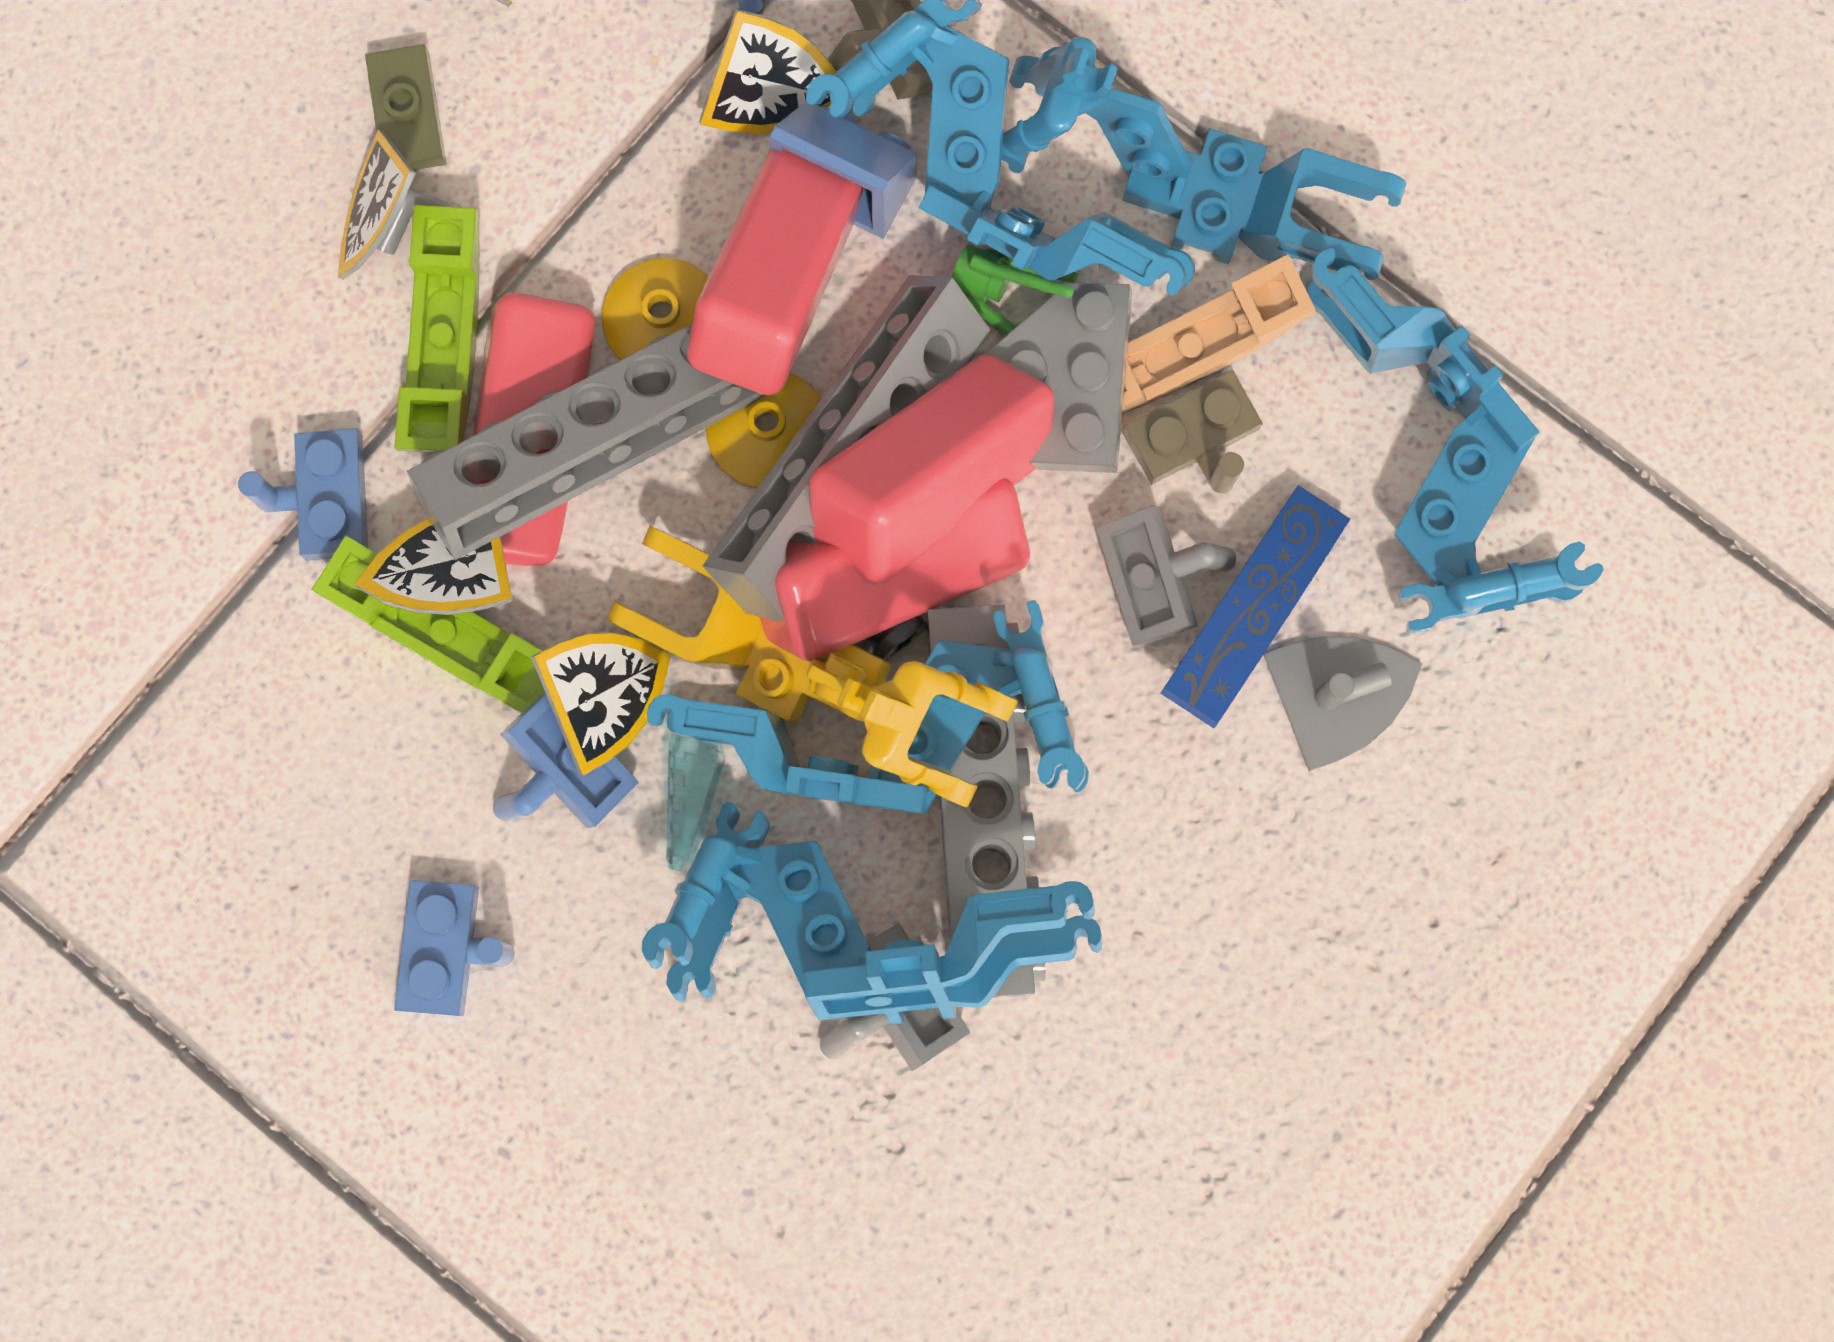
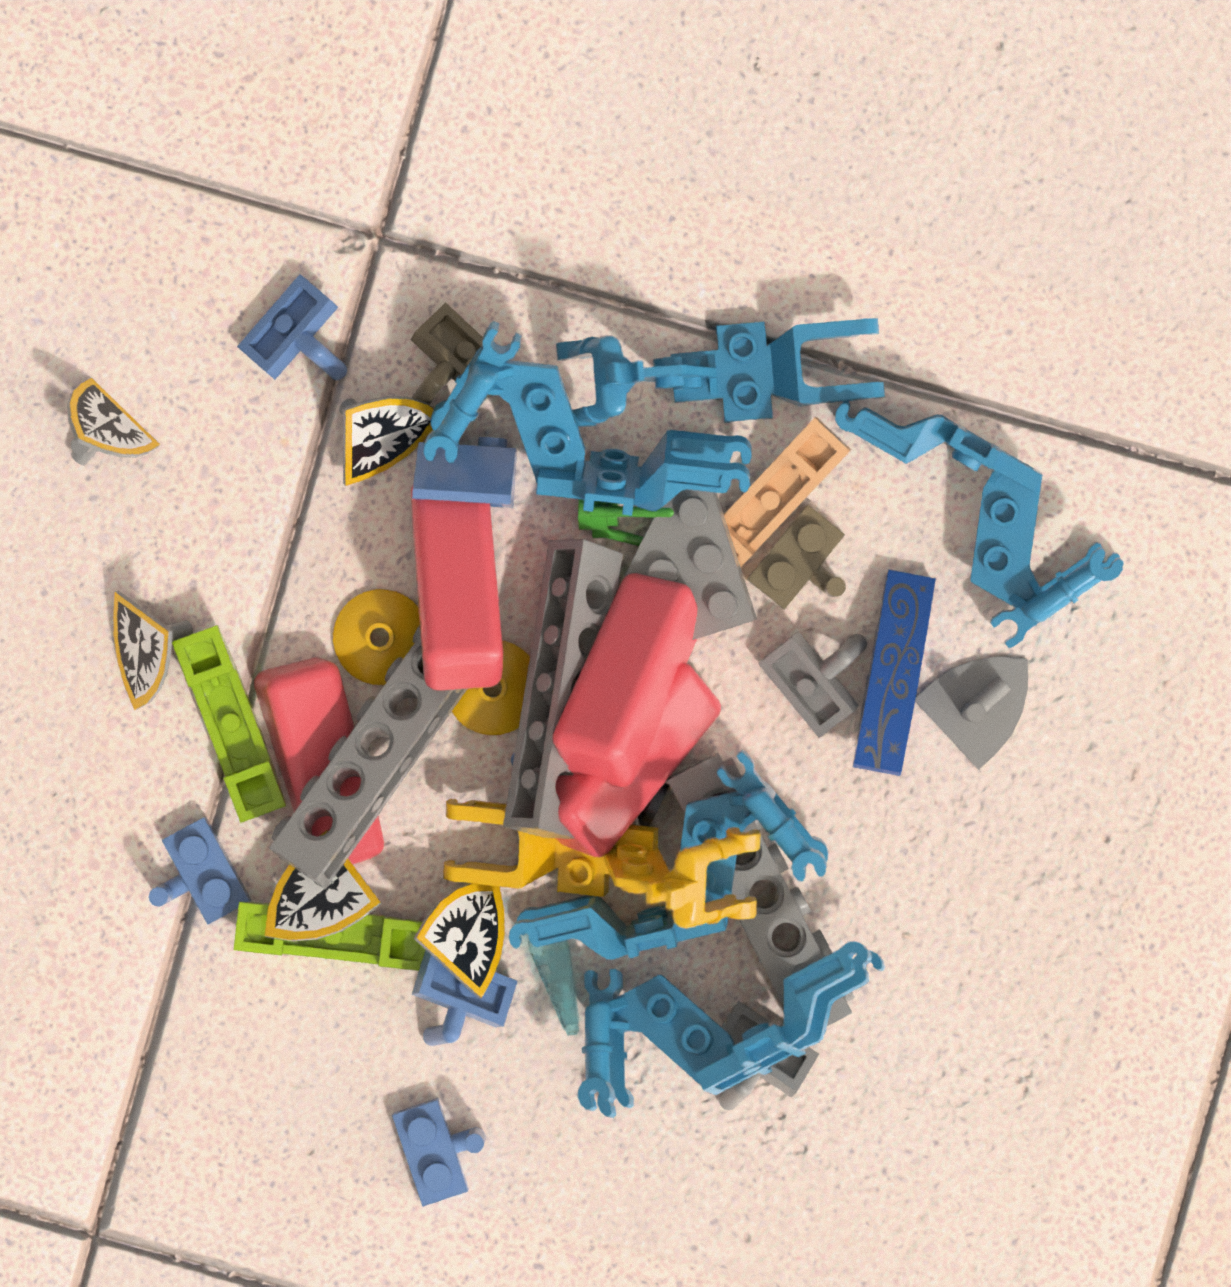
camera: 15 degrees left, 10 degrees up
(407, 103) = (122, 560): olive plate -> none

